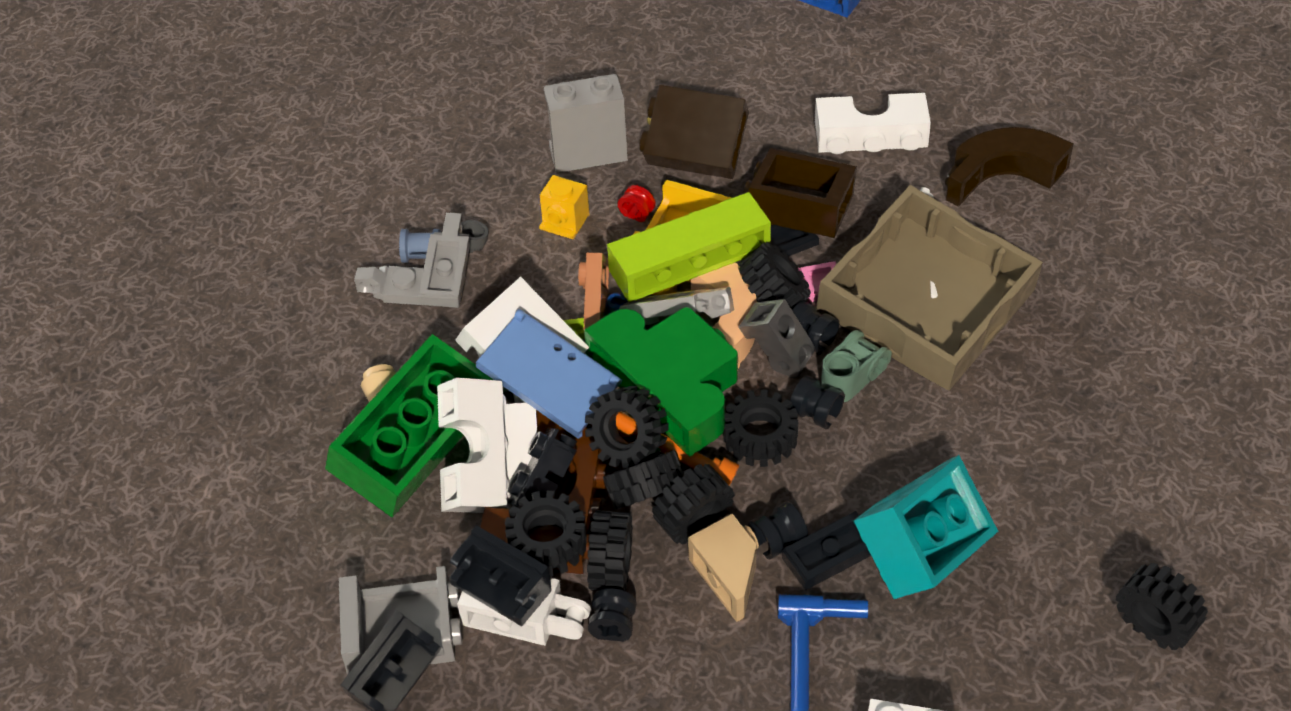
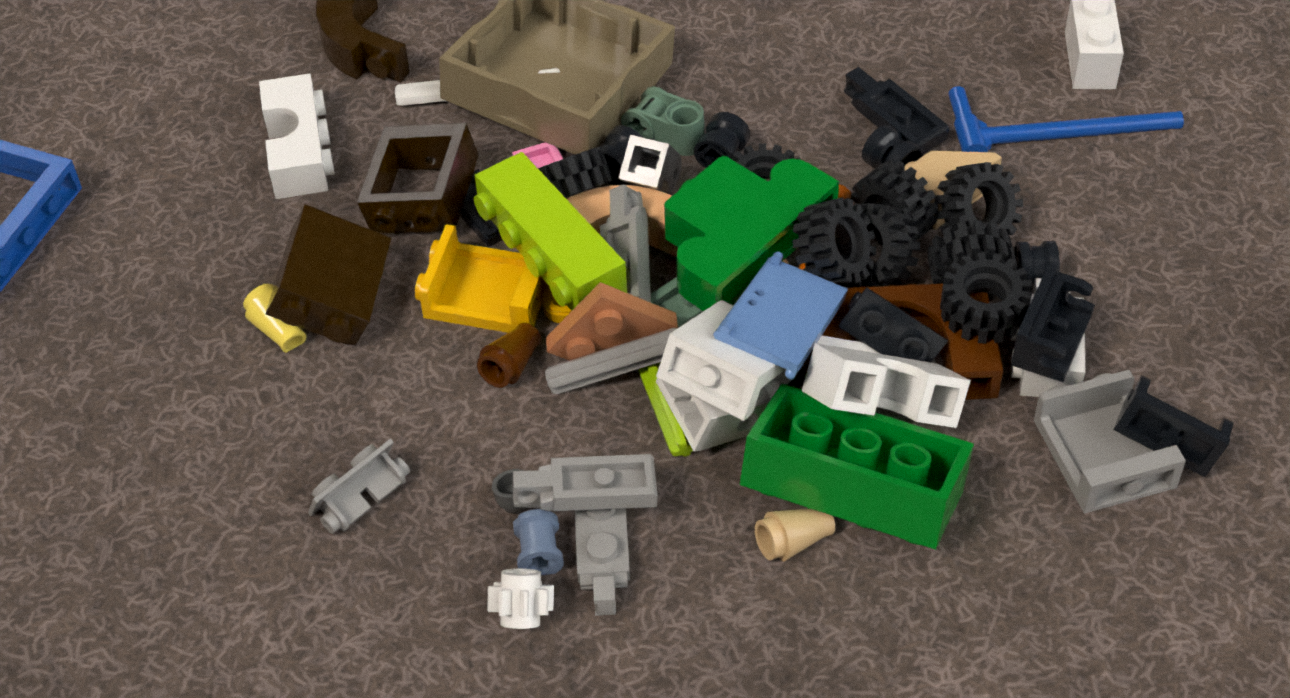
camera: 100 degrees left, 0 degrees up
(373, 229) = (520, 598): none -> white gear
(513, 164) = (341, 497): none -> light grey hinge
(564, 206) = (459, 397): yellow brick -> none
(571, 297) = (607, 363): none -> light grey axle
(586, 123) = (332, 372): light grey panel -> none
(595, 236) = (508, 355): none -> reddish brown cone
(636, 203) = (440, 332): red bush -> none
(660, 569) = (996, 190): none -> black tyre
(926, 528) = (894, 43): teal slope -> none

